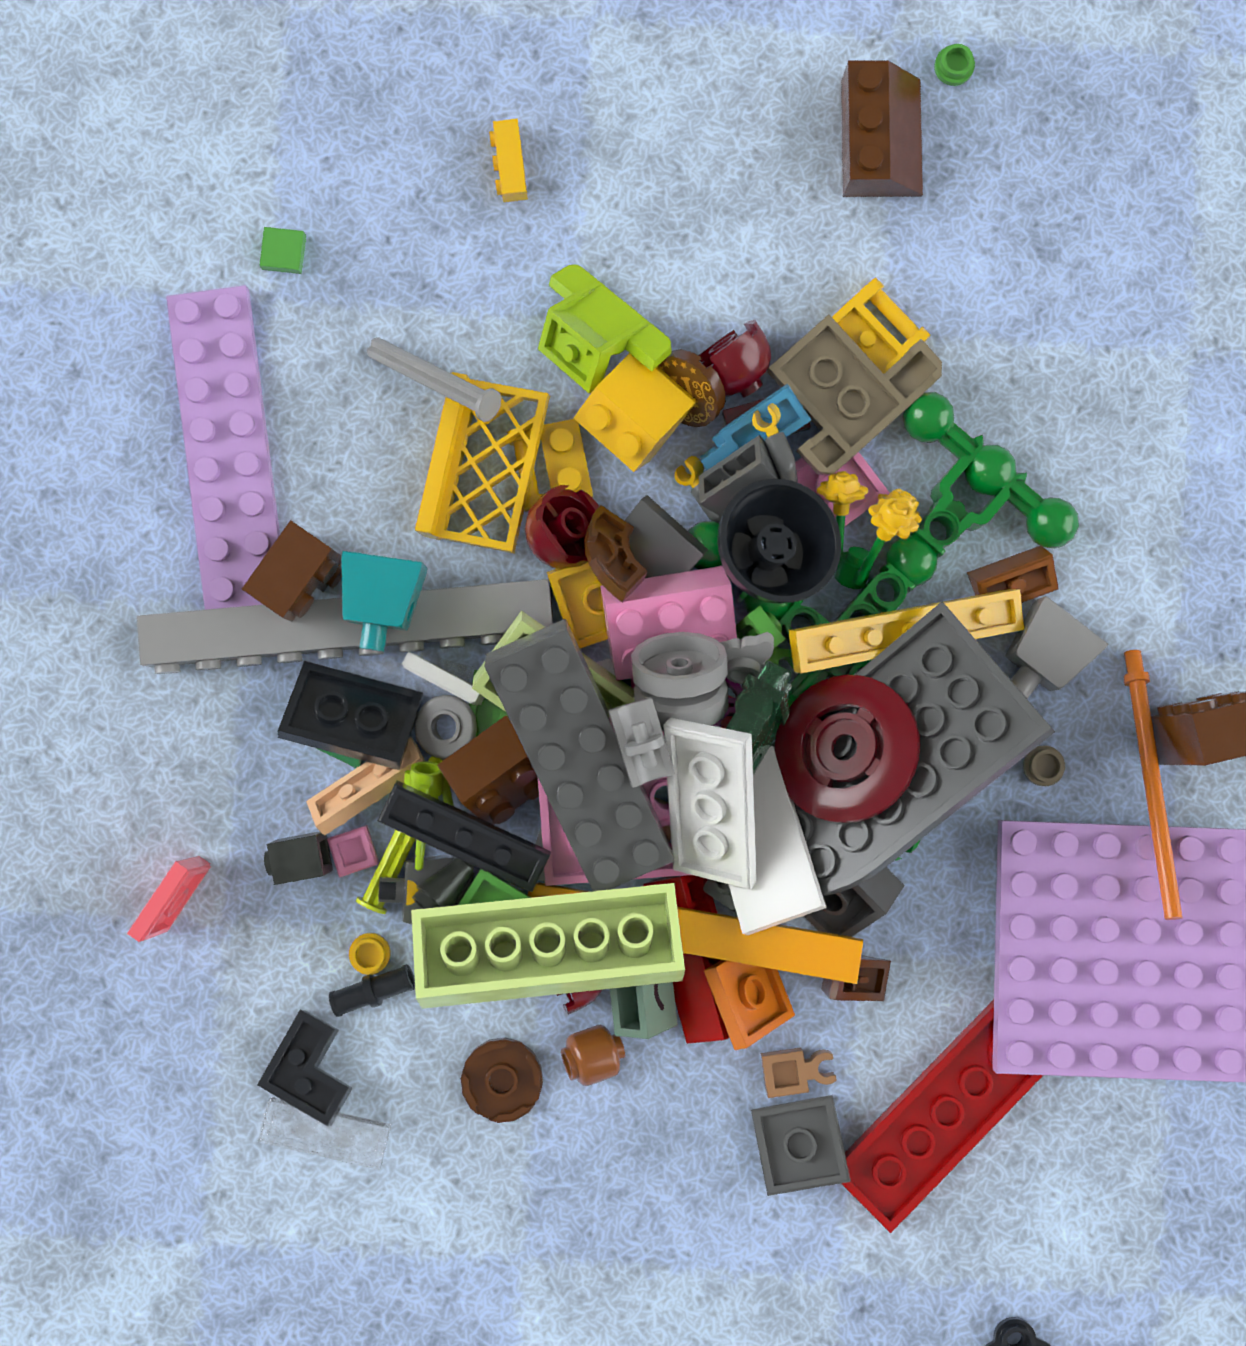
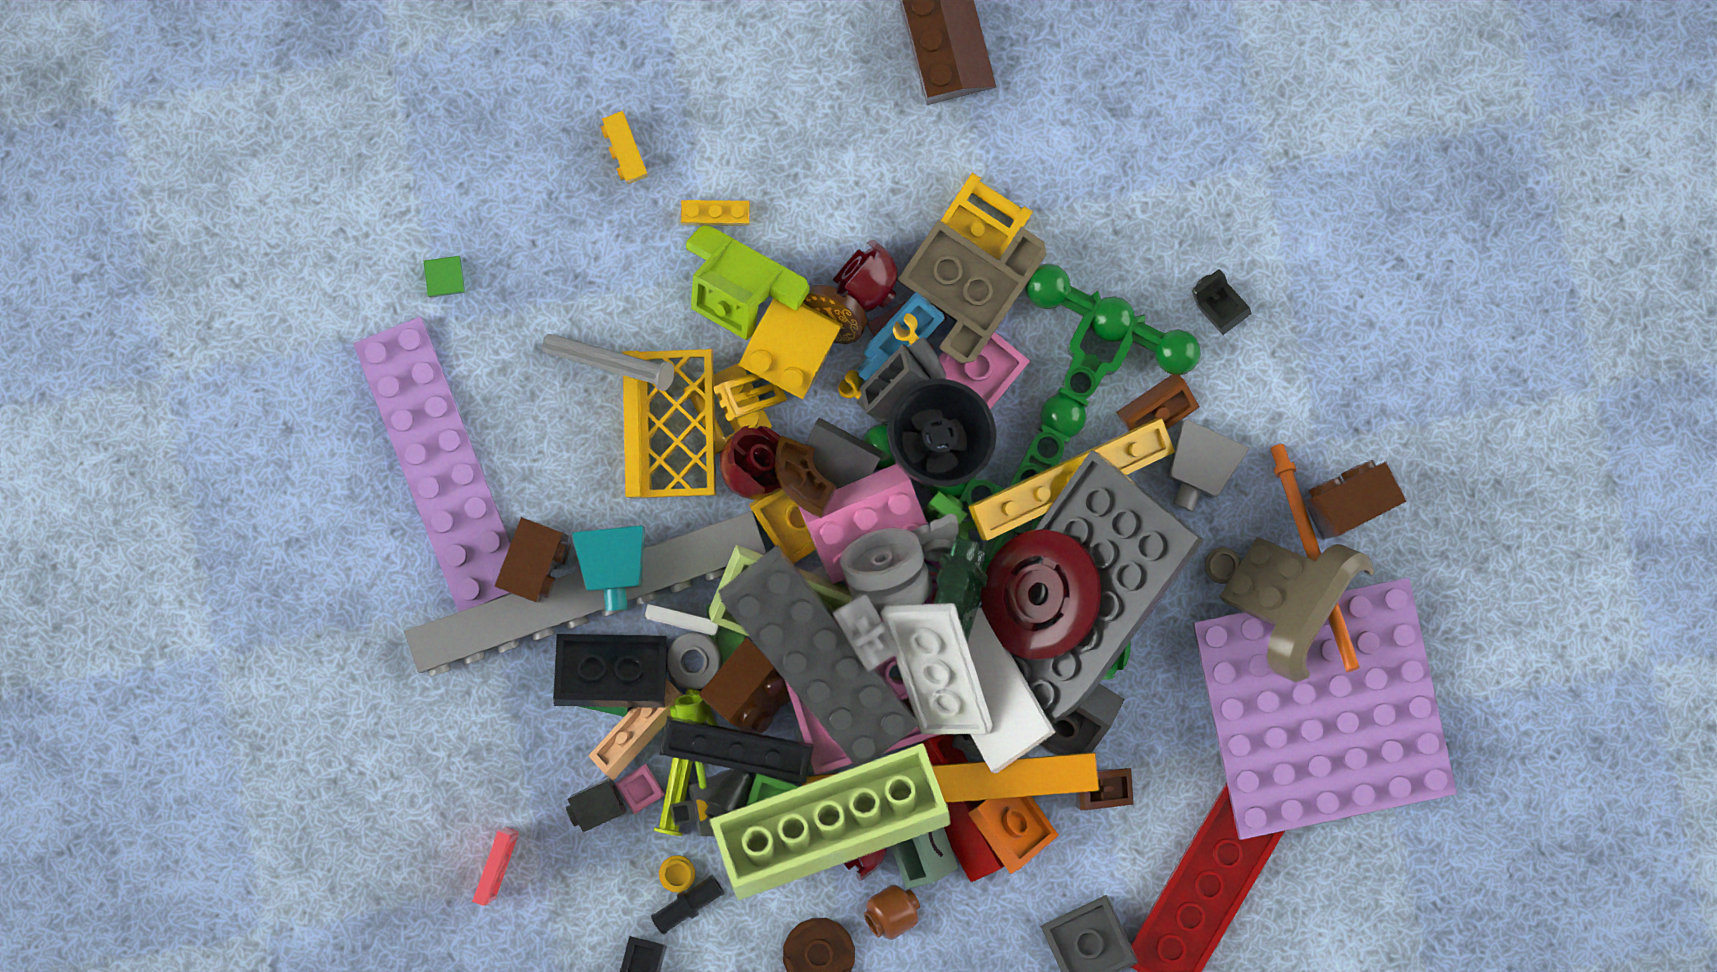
camera: 10 degrees left, 0 degrees up
(555, 454) = (730, 401): none -> yellow tile
(589, 253) = (715, 212): none -> yellow piece
(788, 1071) = (1065, 885): medium nougat plate -> none
(893, 515) = (1030, 389): yellow plant -> none
(1110, 481) = (1220, 302): none -> pearl dark grey bracket
(1123, 819) = (1293, 596): none -> dark tan piece

